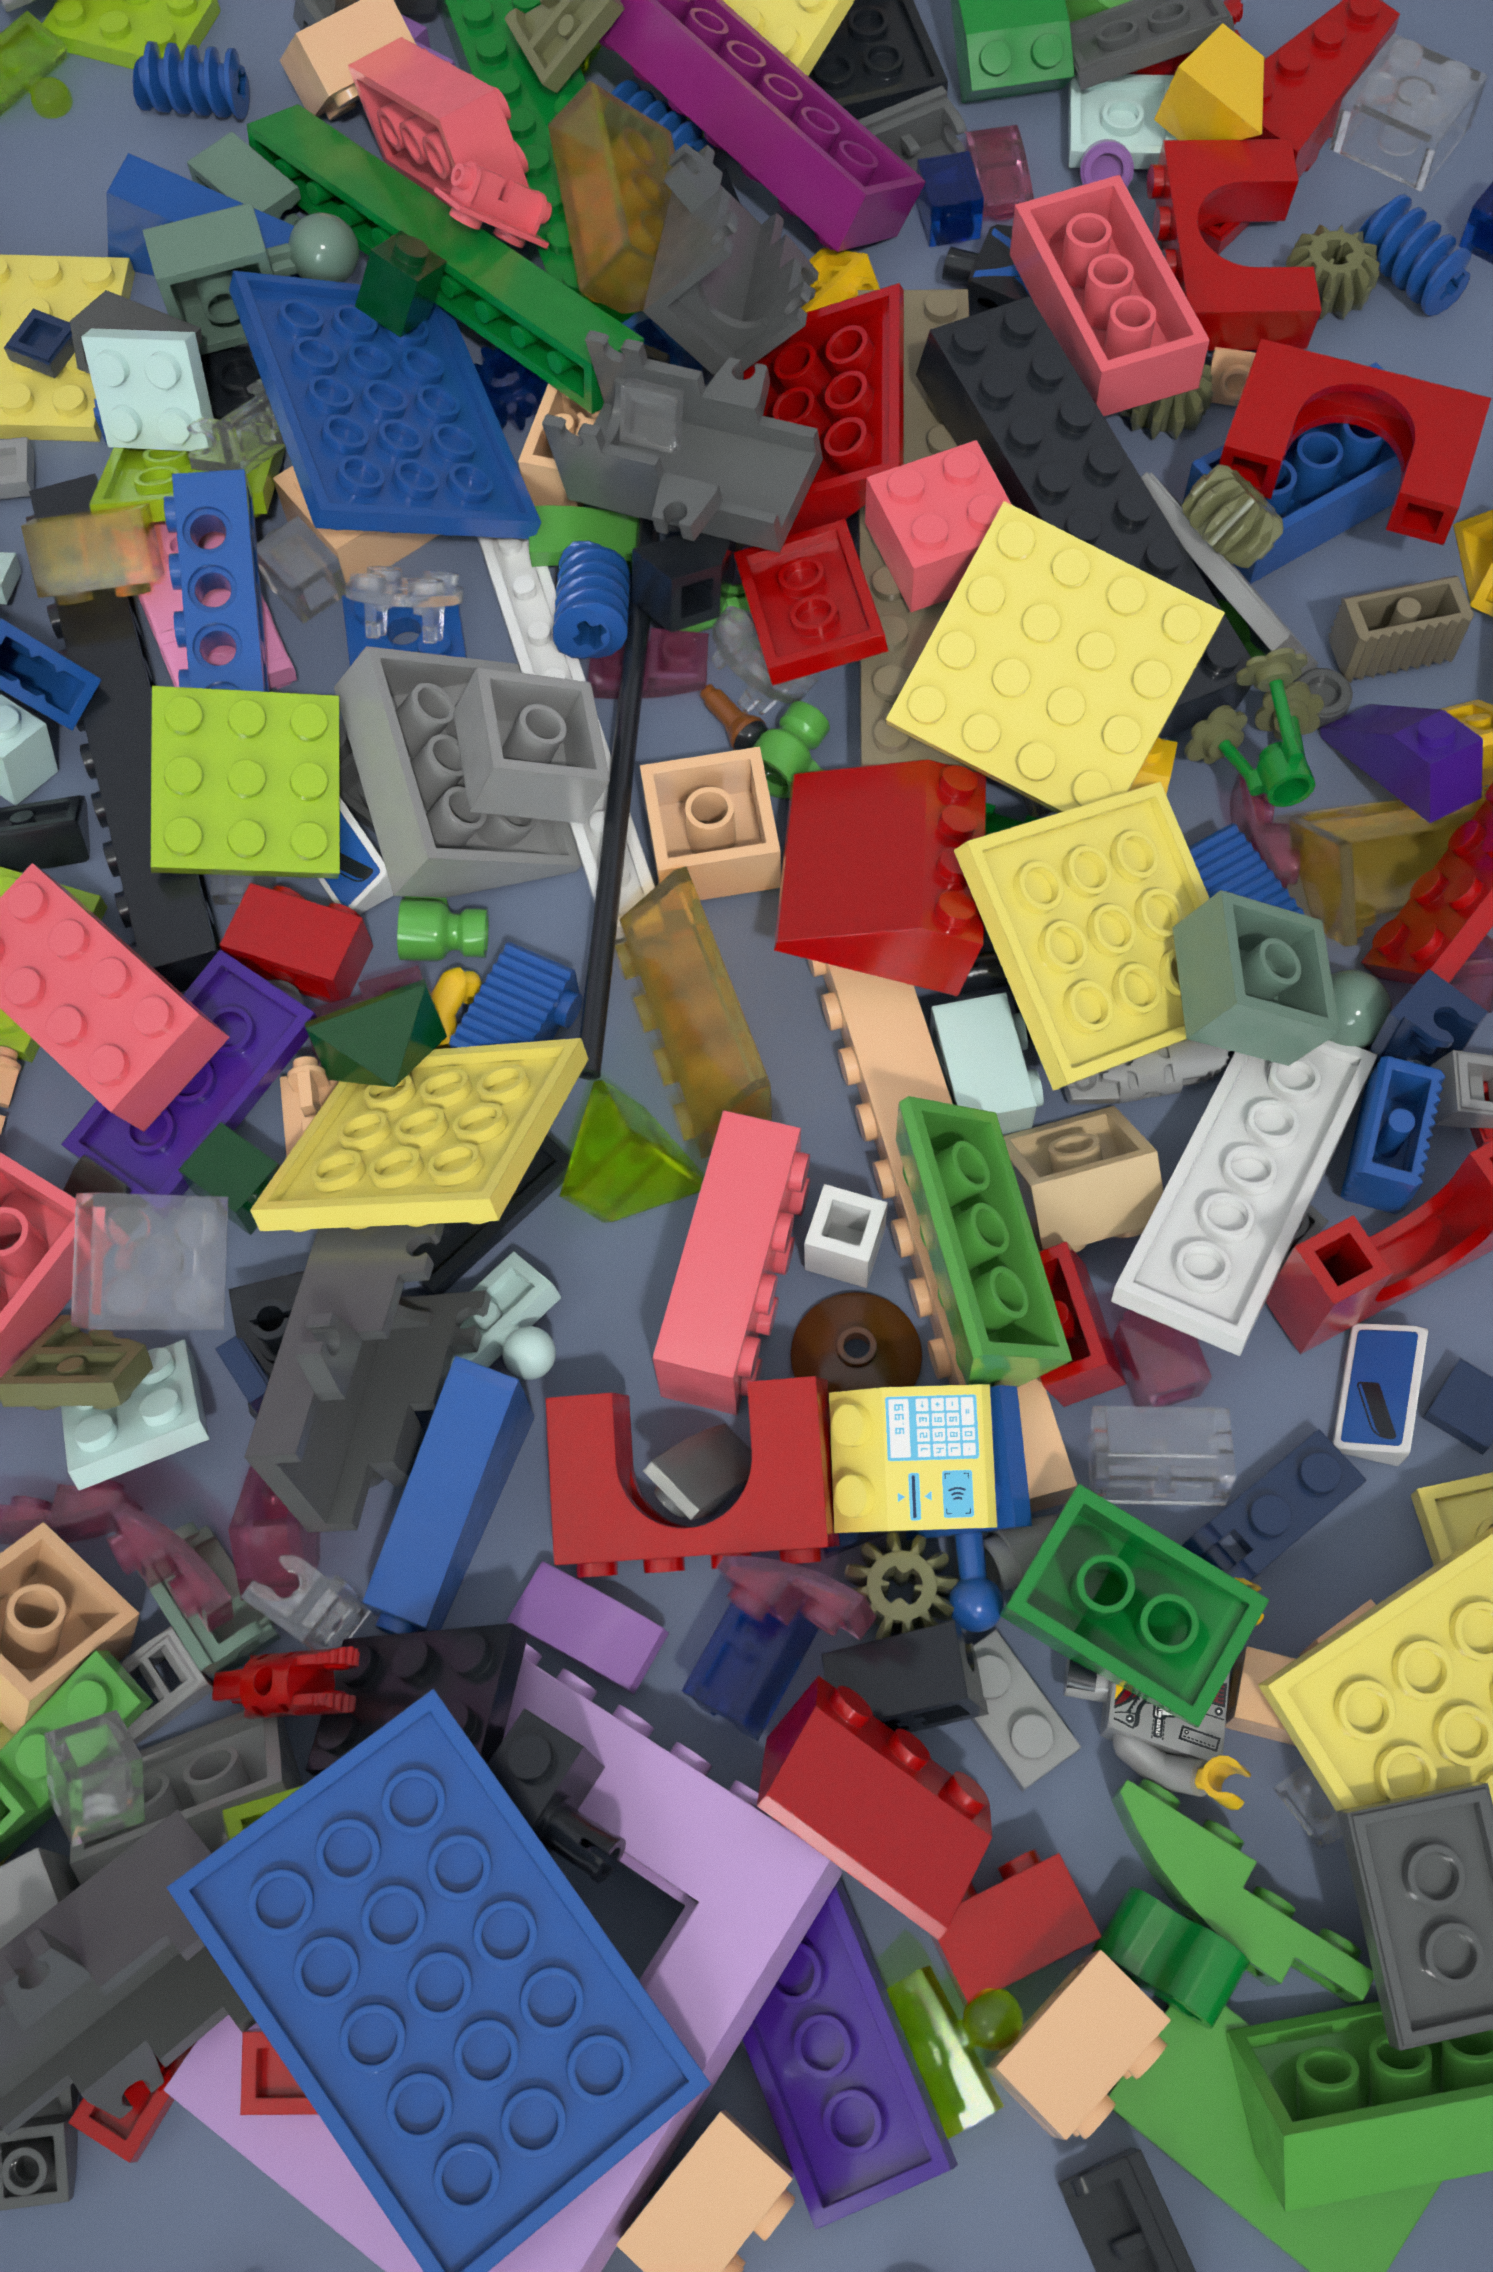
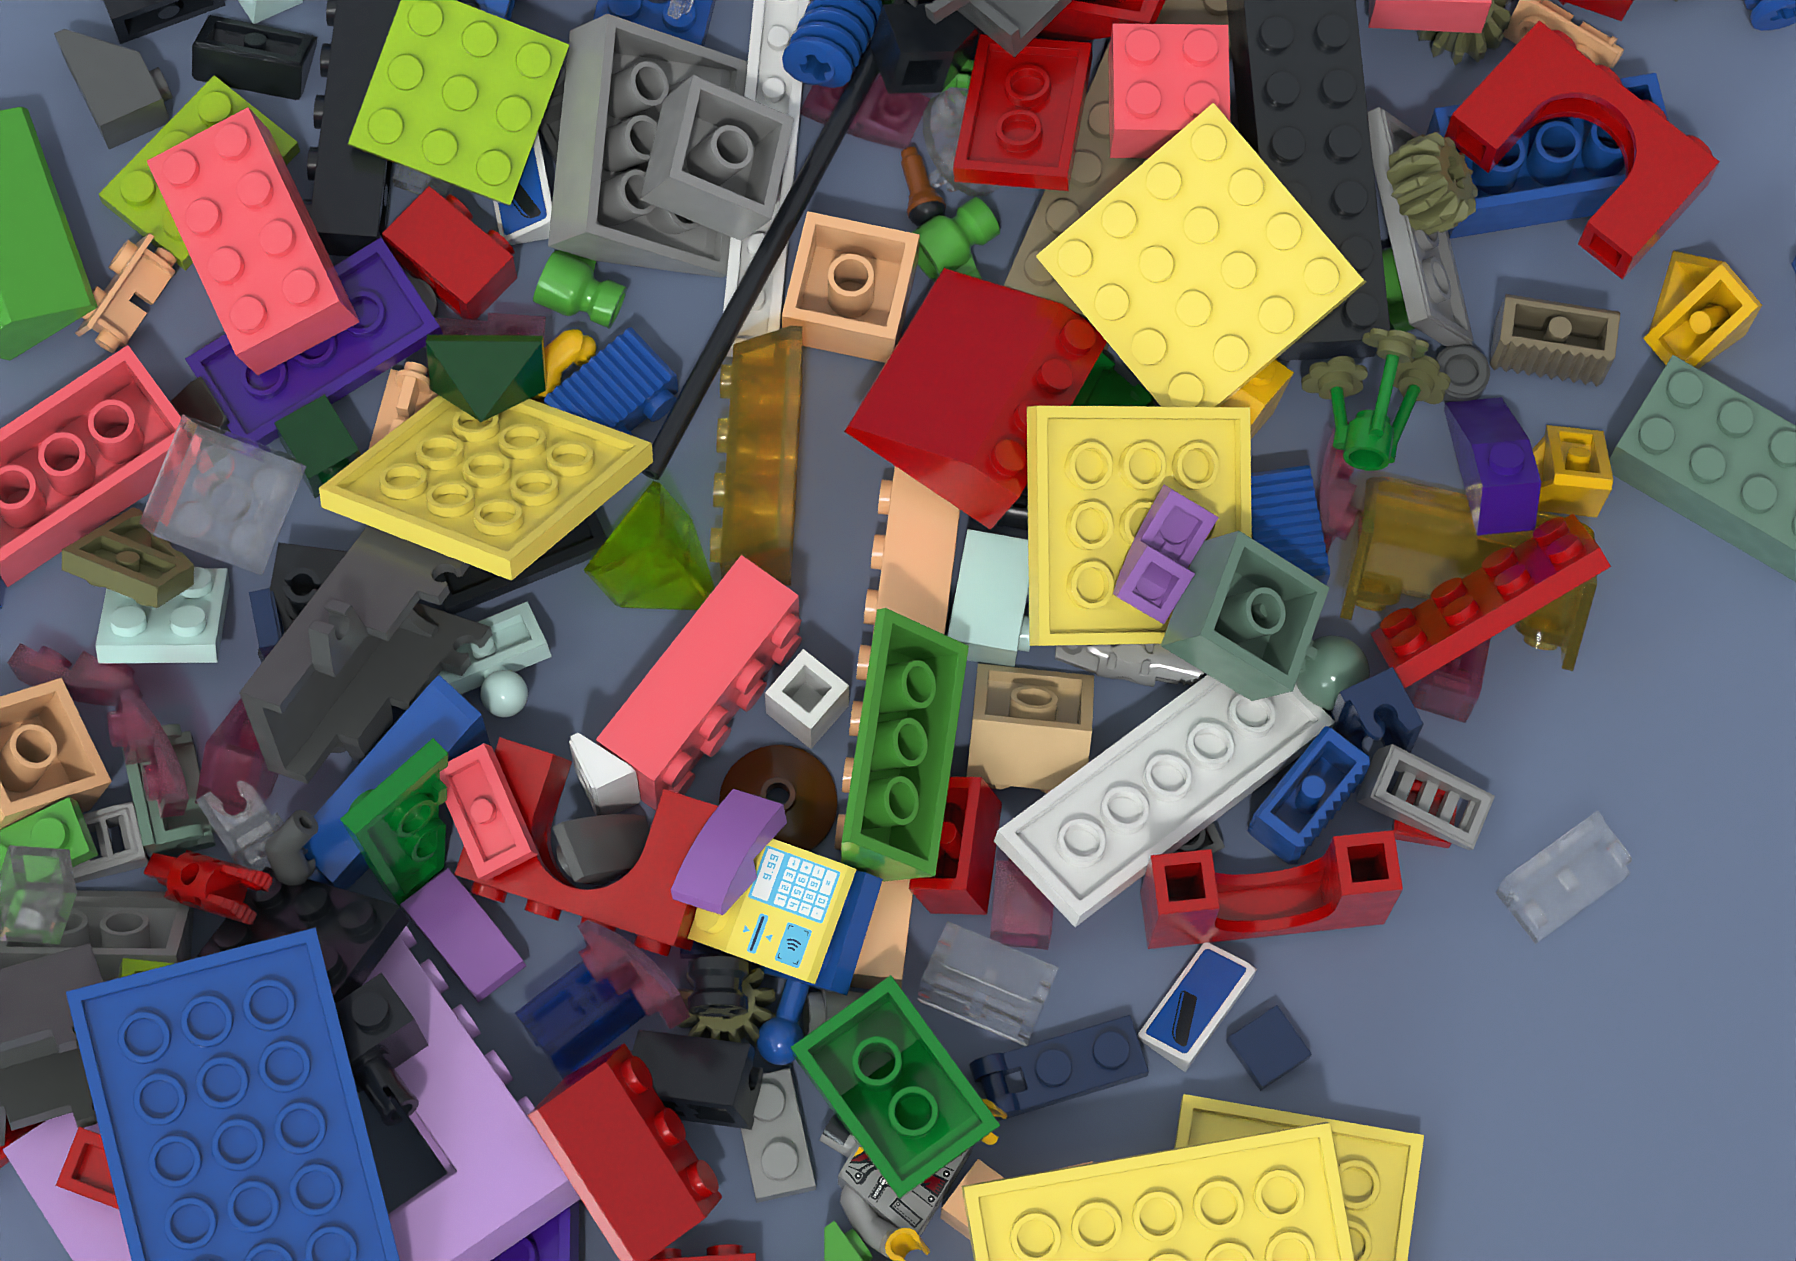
camera: 15 degrees right, 5 degrees up
(362, 1612) = (286, 849): none -> dark grey arm
(475, 1534) = (400, 824): none -> green wing
(563, 1484) = (486, 813): none -> coral plate
(670, 1397) = (604, 777): none -> white slope
(845, 1421) = (723, 853): none -> medium lavender slope
(893, 1571) = (718, 986): none -> black wheel
(1143, 943) = (1161, 553): none -> medium lavender slope

